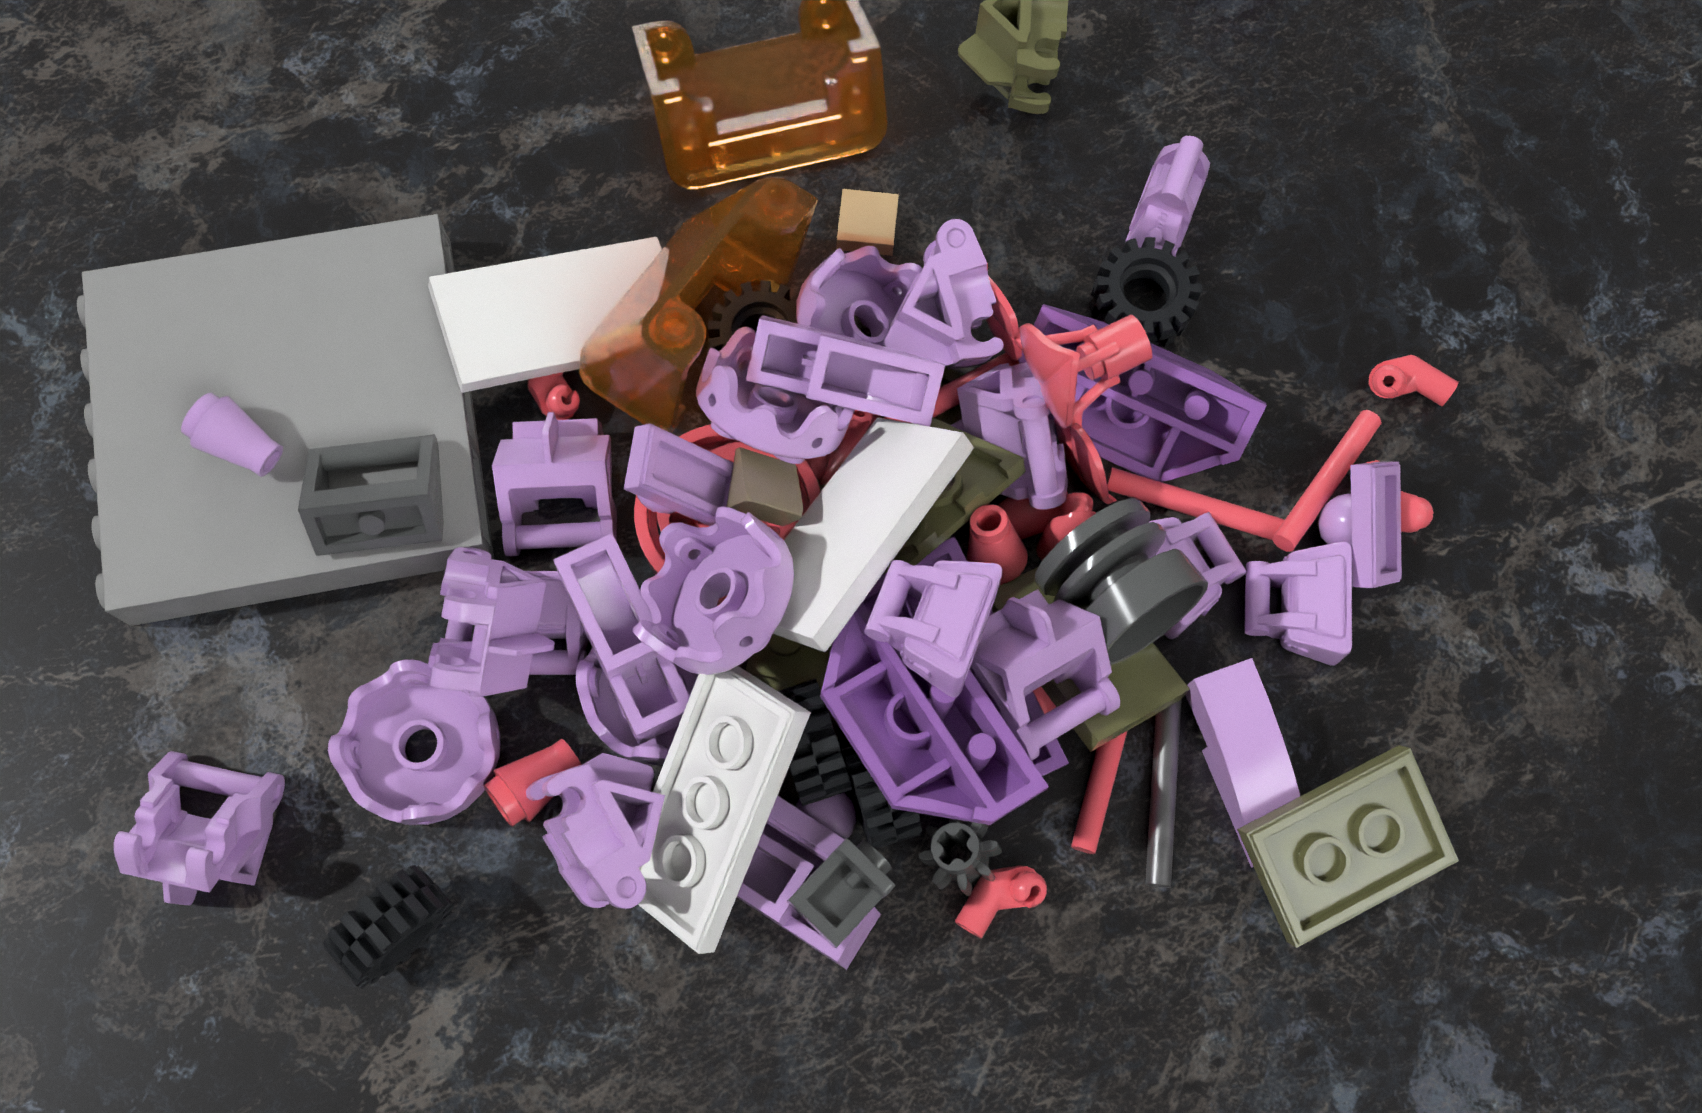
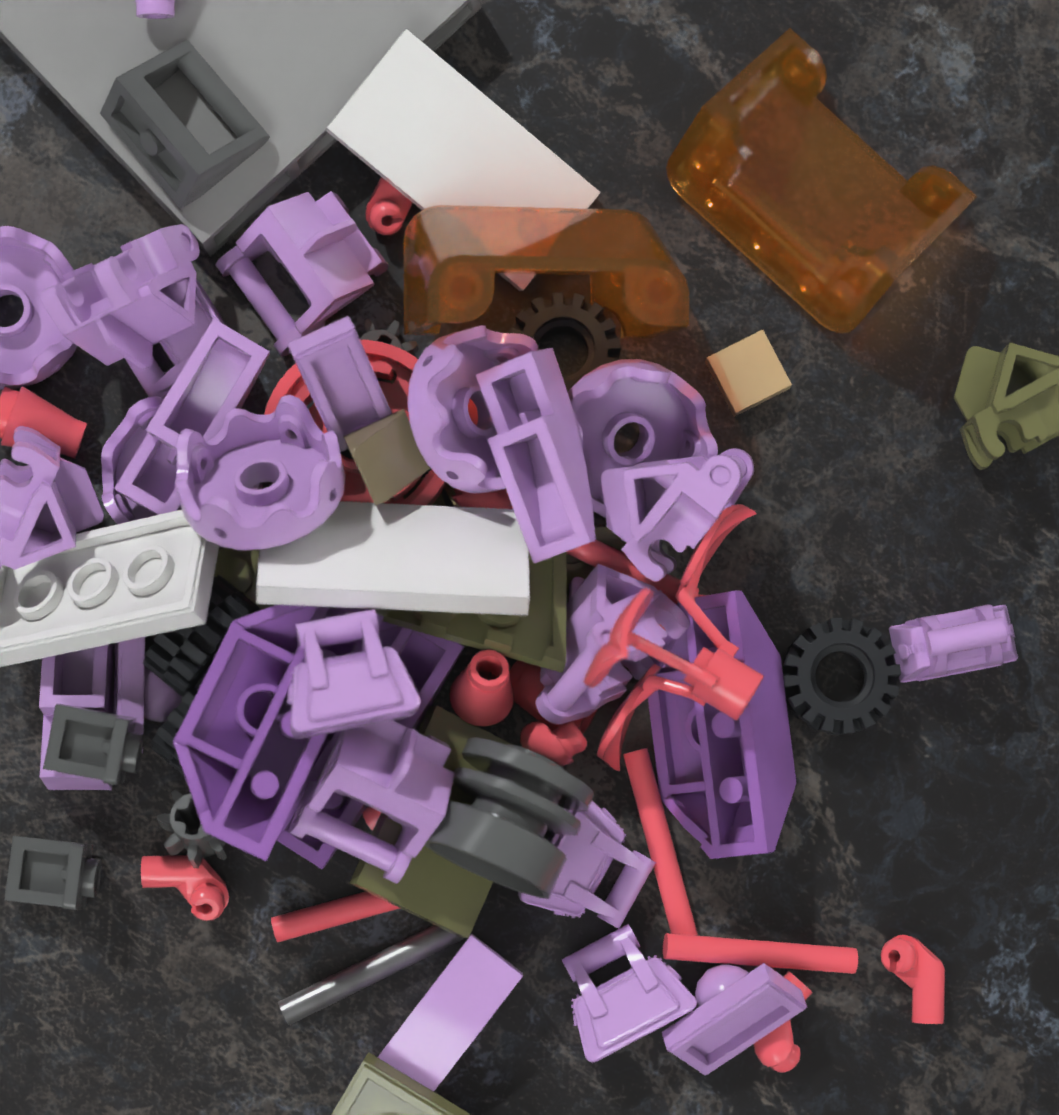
camera: 60 degrees right, 10 degrees up
(924, 1006) = (52, 873): none -> dark grey bracket

